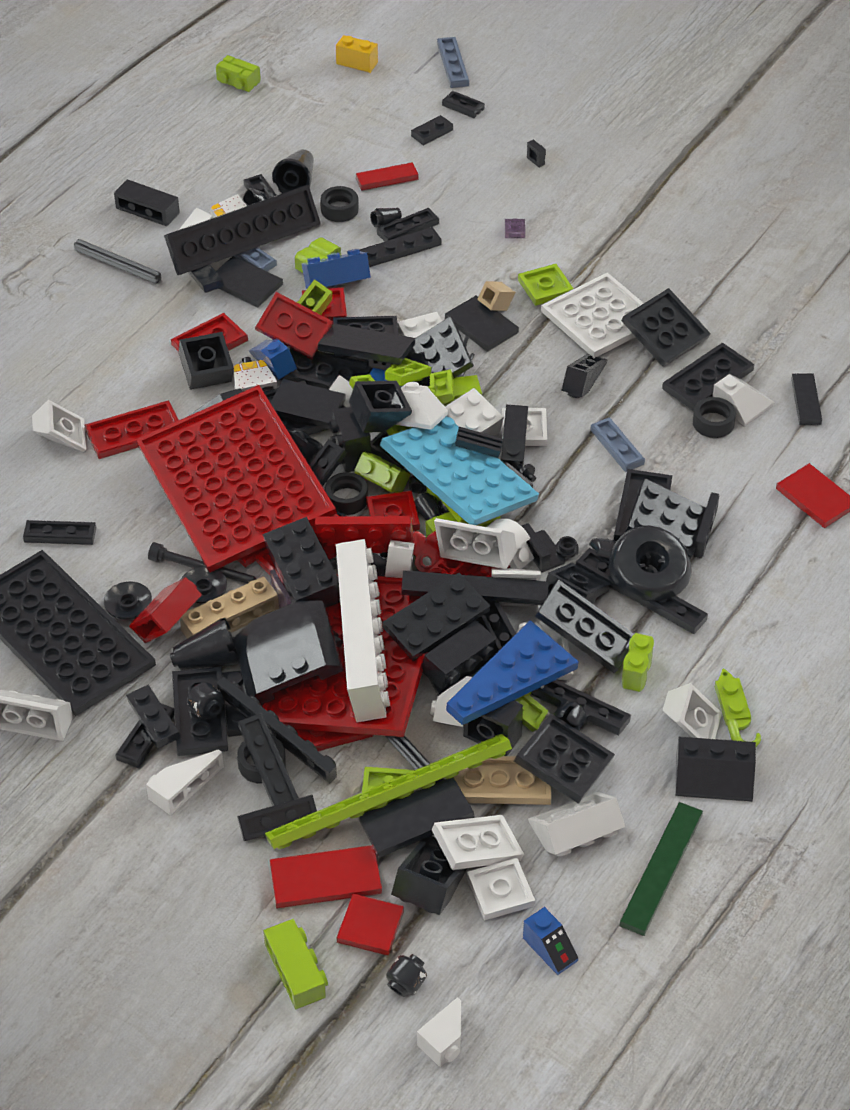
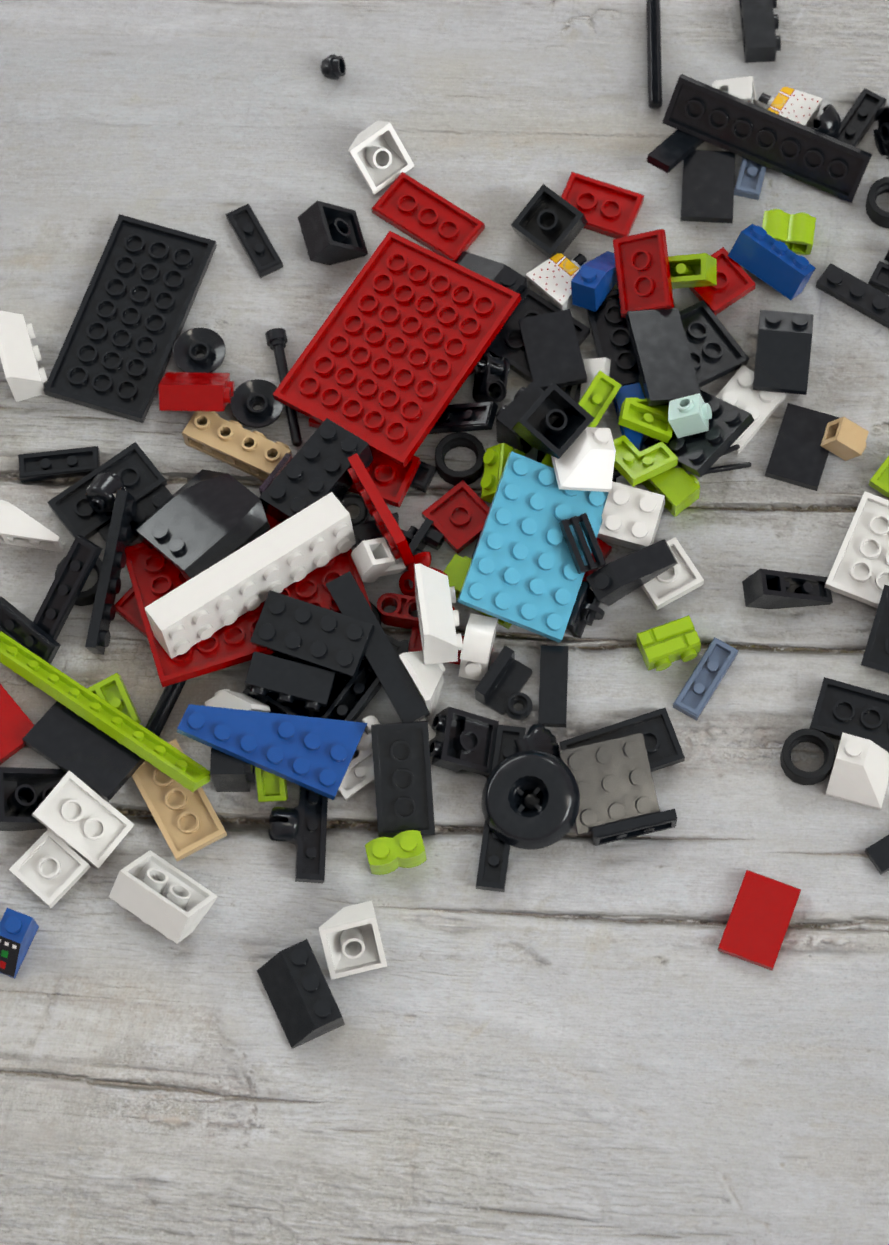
camera: 65 degrees right, 20 degrees up
(98, 483) = (332, 233): none -> black slope
(153, 716) = (72, 458): black plate -> none
(206, 648) = (178, 455): black cone -> none
(407, 294) = (783, 352): none -> black slope
(425, 347) = (689, 415): none -> light aqua brick
(564, 523) = (553, 686): none -> black tile
(564, 758) = (225, 845): black plate -> none
(579, 447) = (669, 643): none -> lime brick
(661, 869) = (158, 1001): dark green tile -> none
(733, 705) = (398, 976): lime plate -> none

